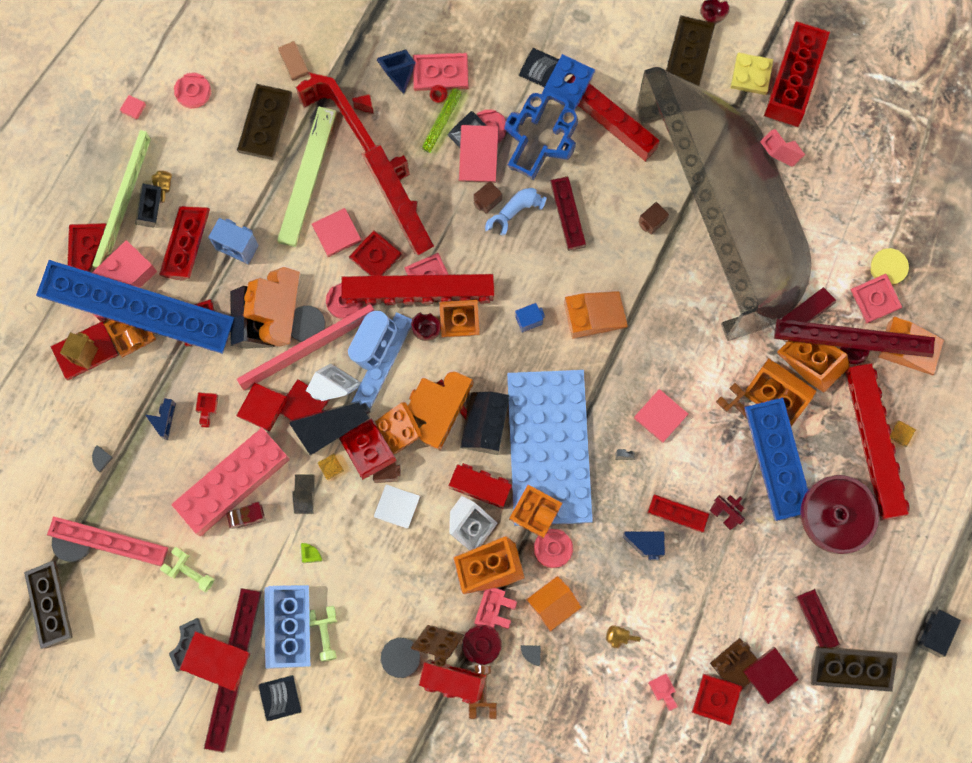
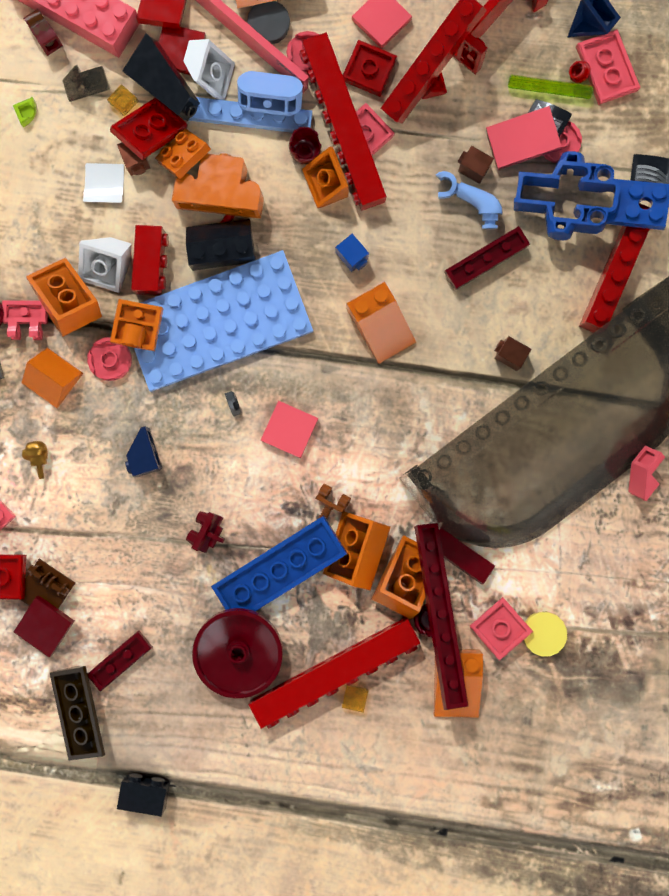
camera: 70 degrees right, 10 degrees up
(678, 513) = (188, 479): red tile -> none

